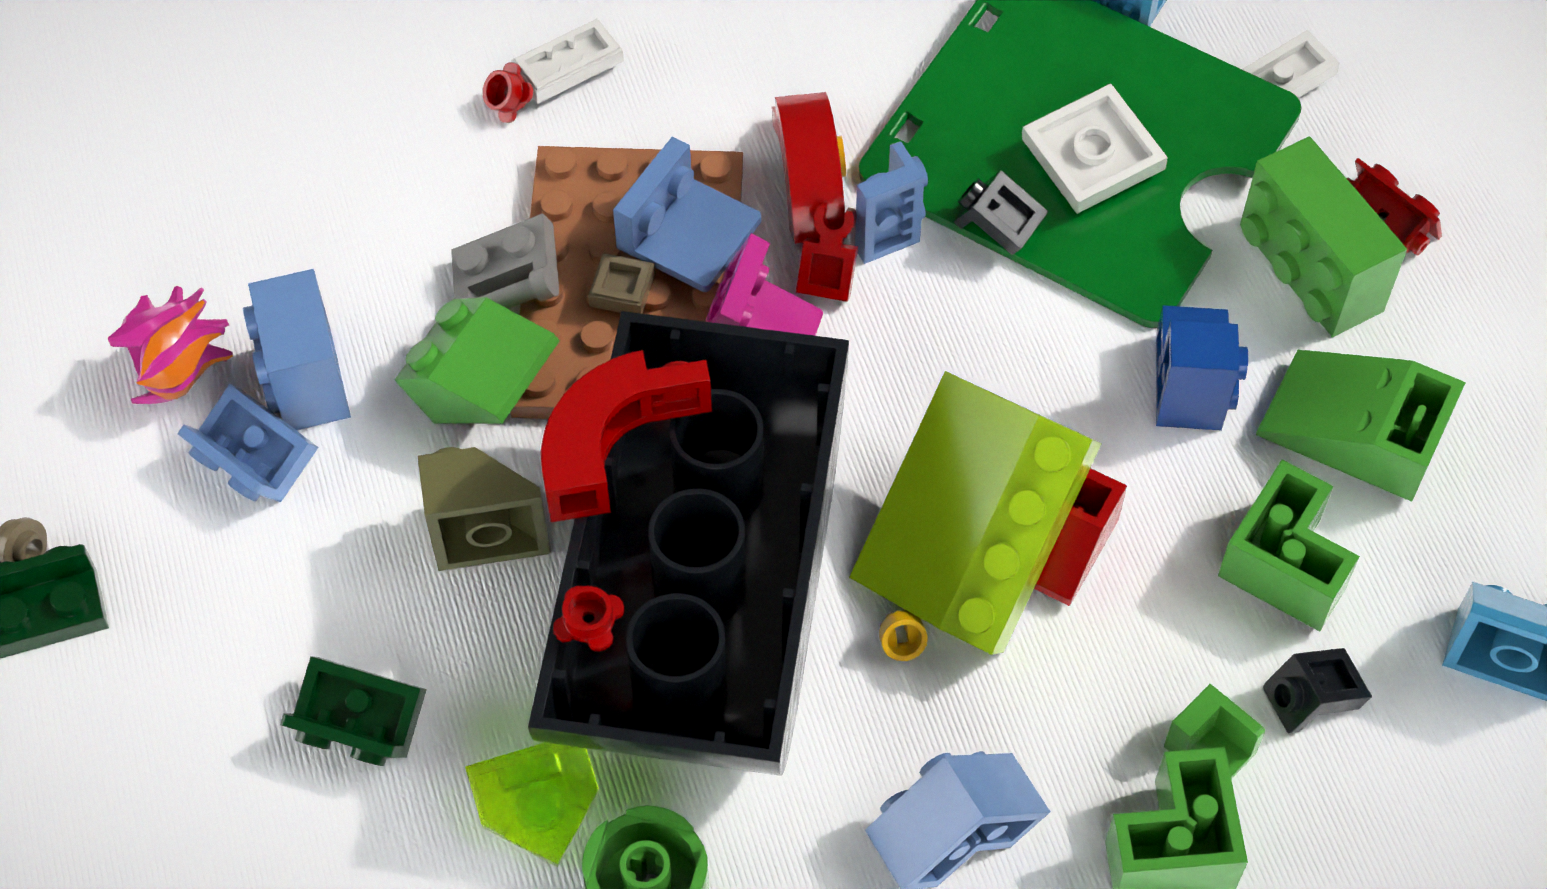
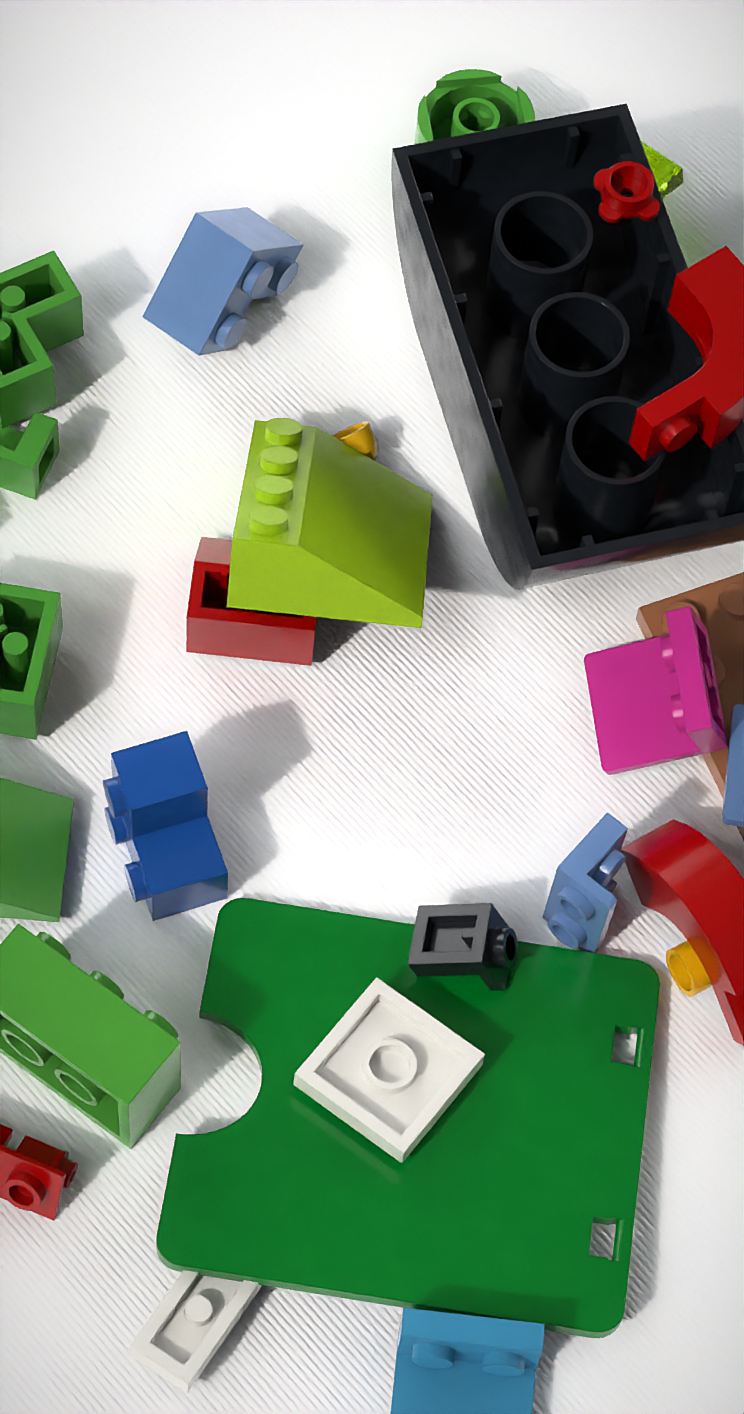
camera: 150 degrees right, 5 degrees up
(827, 262) = (632, 805): red plate -> none

